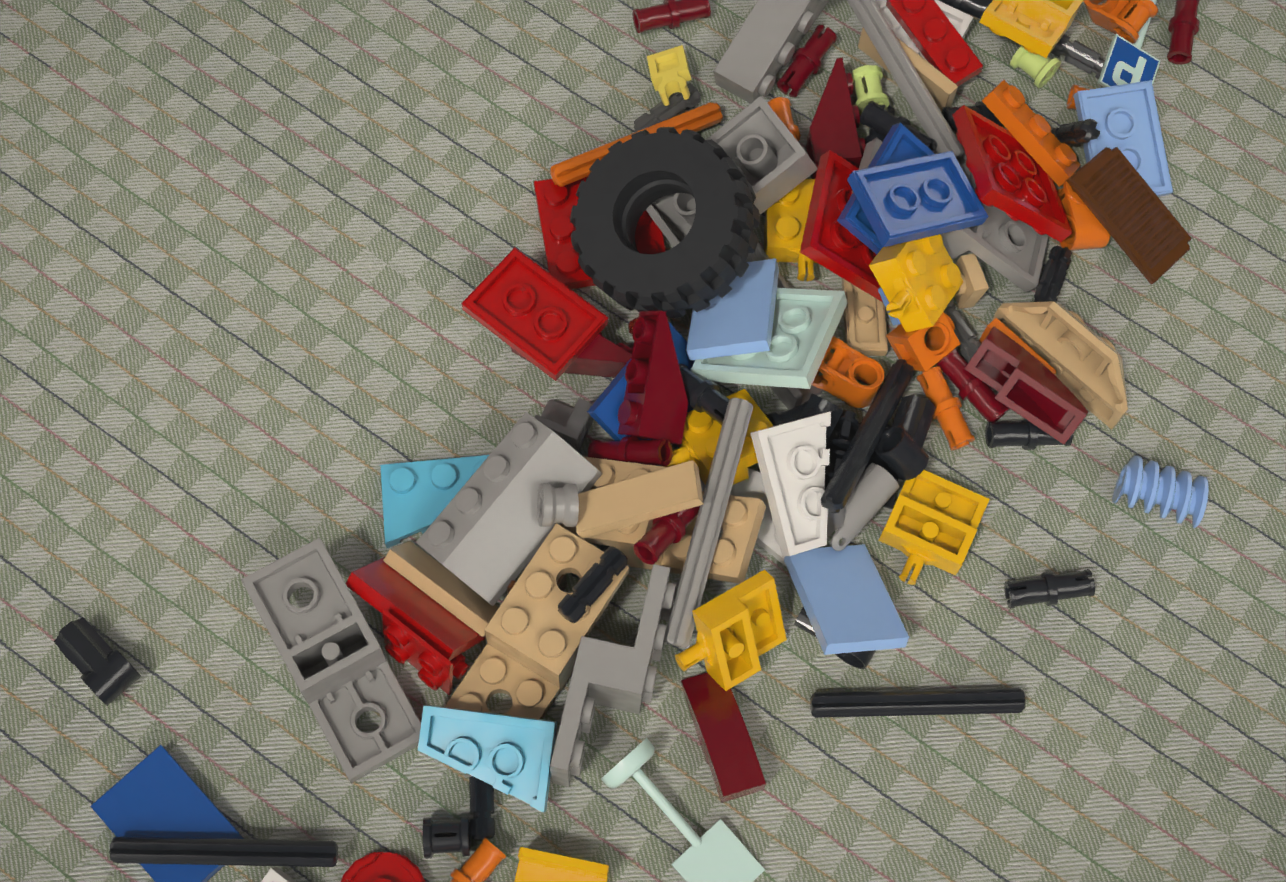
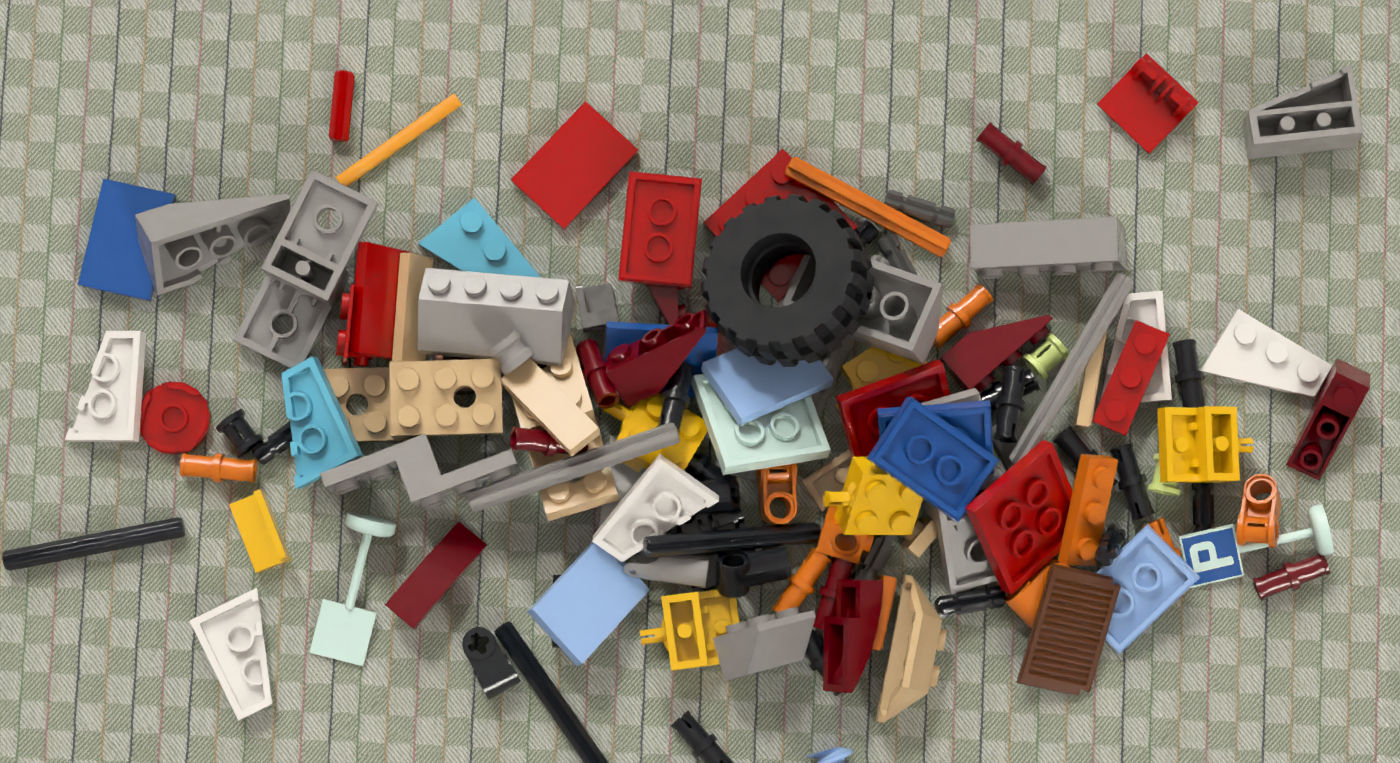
camera: 55 degrees right, 15 degrees up
(102, 667) = (199, 116): black piece -> none
(201, 530) = (341, 106): none -> red axle
(216, 752) = (193, 236): none -> light grey wedge
(224, 851) = (131, 292): black axle -> none
(275, 492) = (399, 140): none -> light orange bar
(417, 362) = (574, 165): none -> red tile
(592, 584) = (467, 416): black axle -> none
(670, 73) = (952, 187): light yellow plate -> none
(736, 631) = (511, 538): yellow plate -> none
(806, 61) = (1041, 289): dark red pin -> none
(849, 737) = (491, 668): none -> black piece
(988, 463) = (765, 643): none -> light grey slope
(1034, 93) = (1132, 482): none -> black pin

